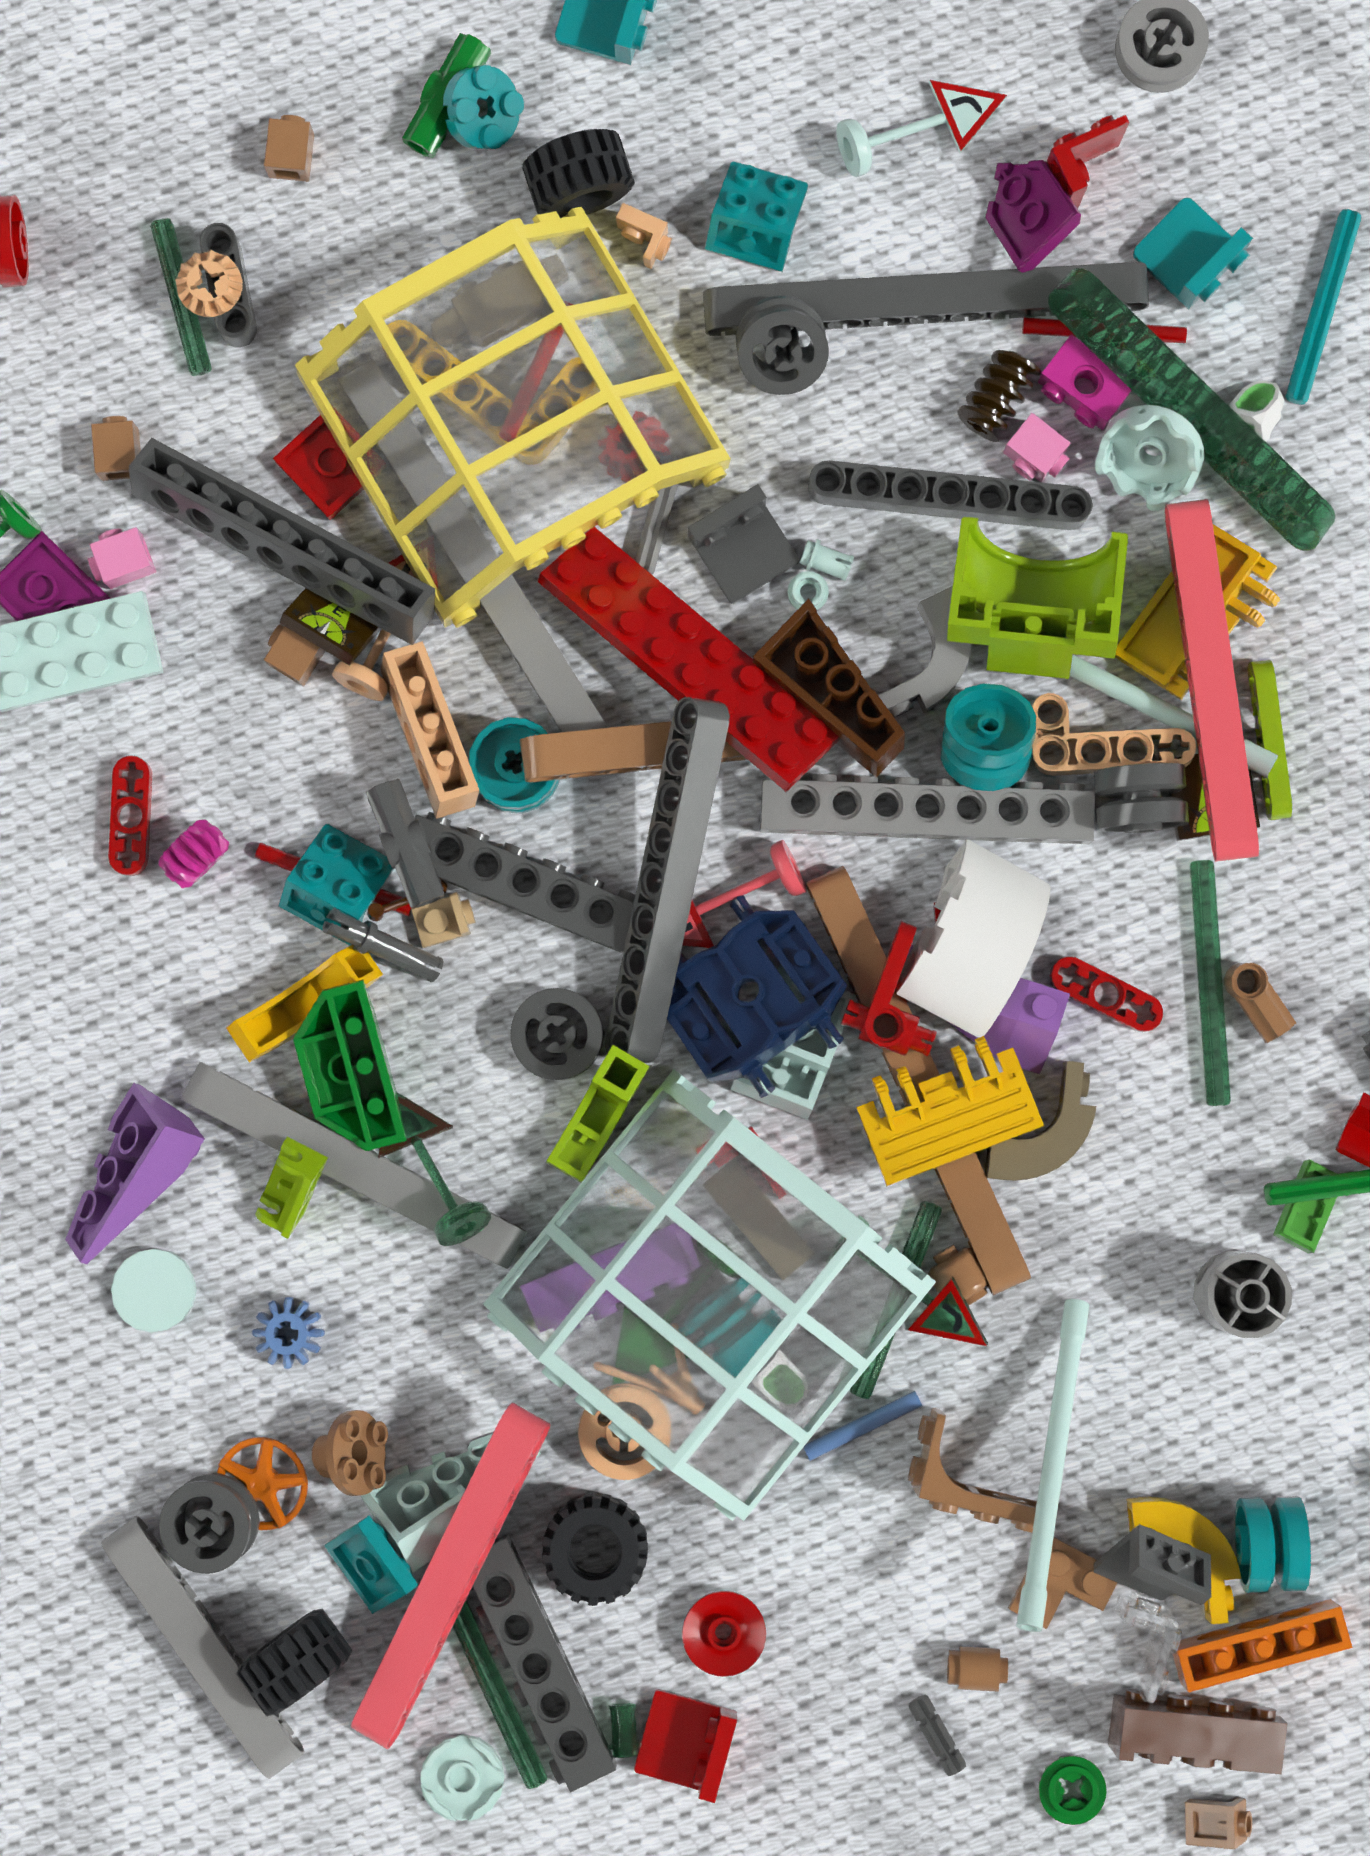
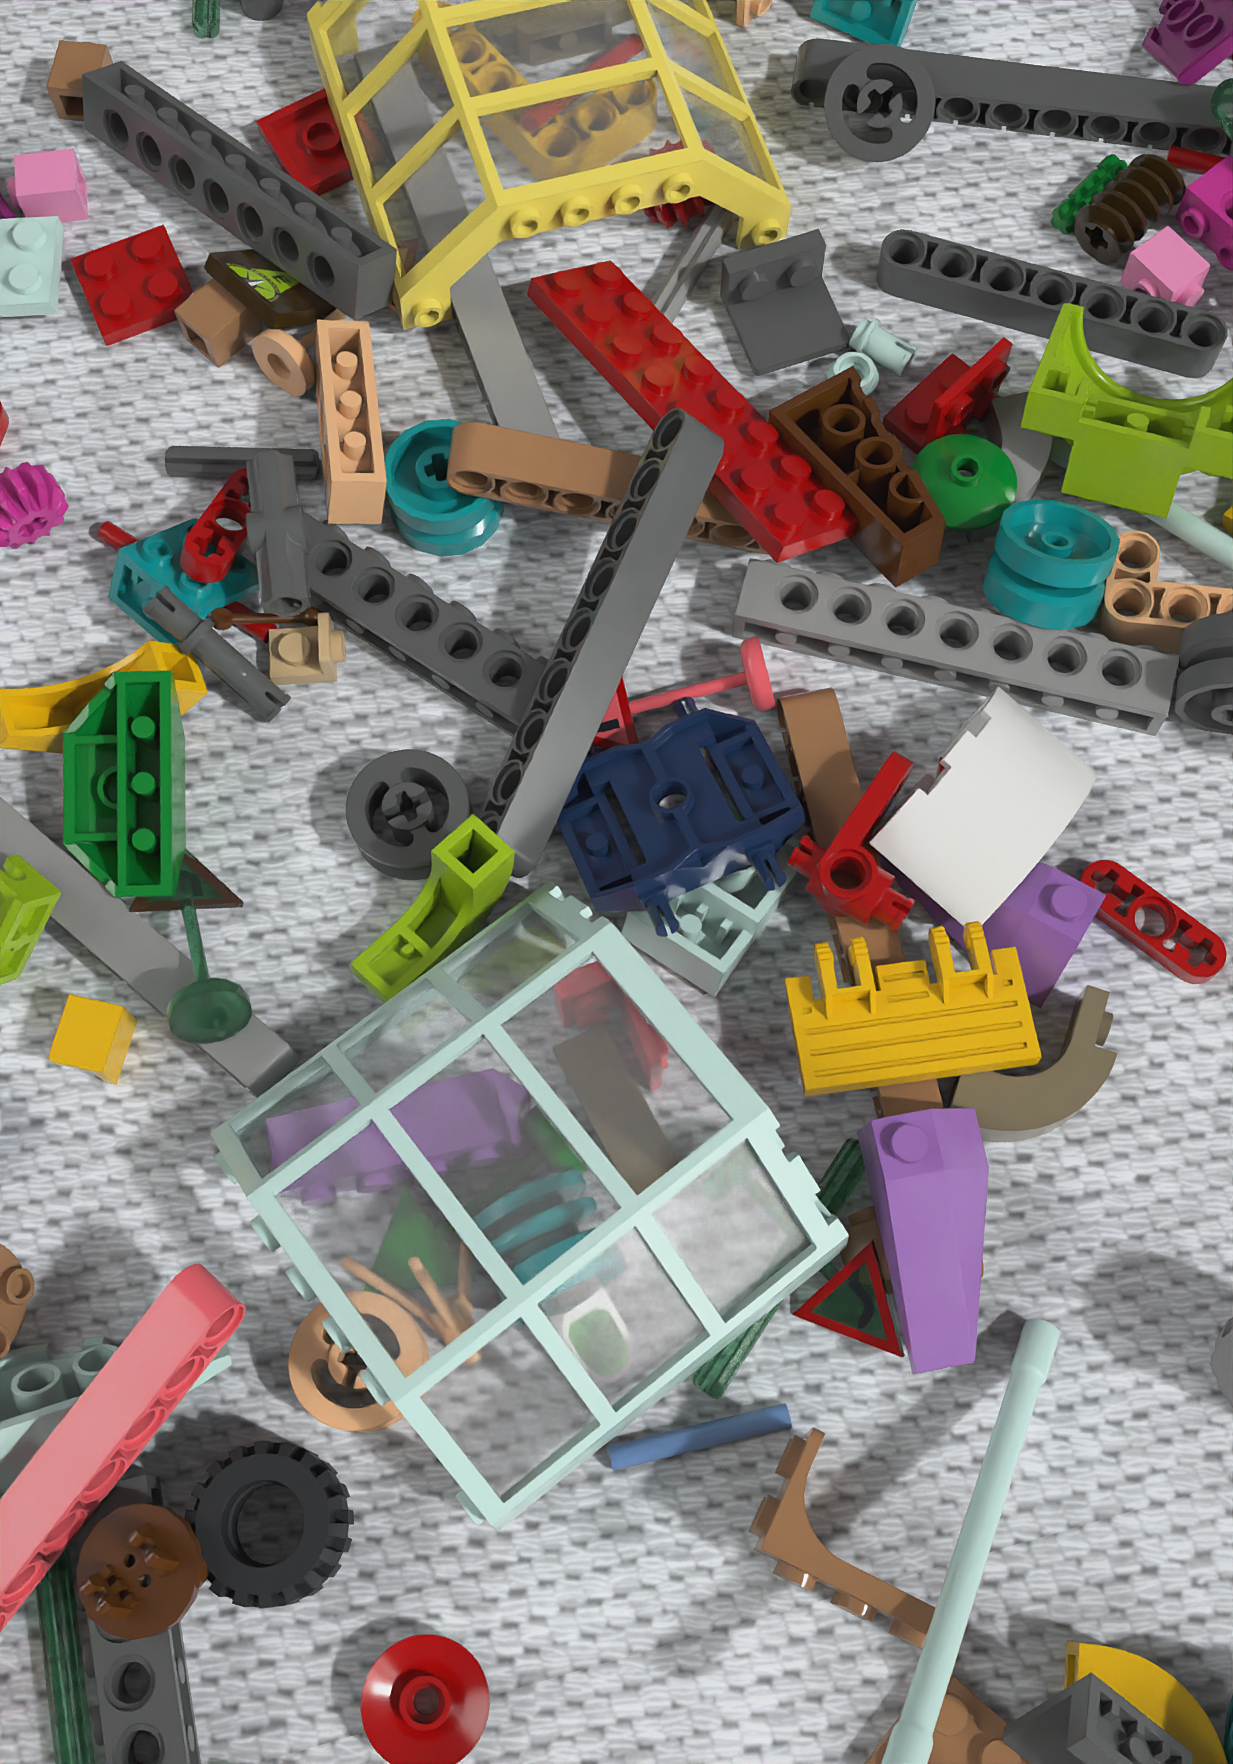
camera: 15 degrees right, 15 degrees down
(215, 628) = (133, 284): none -> red plate
(348, 846) = (207, 531): none -> red beam
(349, 770) = (224, 461): none -> dark grey axle
(376, 1252) = (93, 1037): none -> yellow panel
(535, 1583) = (162, 1549): none -> reddish brown plate
(881, 601) = (949, 398): none -> red bracket
(907, 701) = (973, 500): none -> green dish
(965, 377) = (1081, 195): none -> green axle
(989, 1252) = (930, 1209): none -> medium lavender wedge

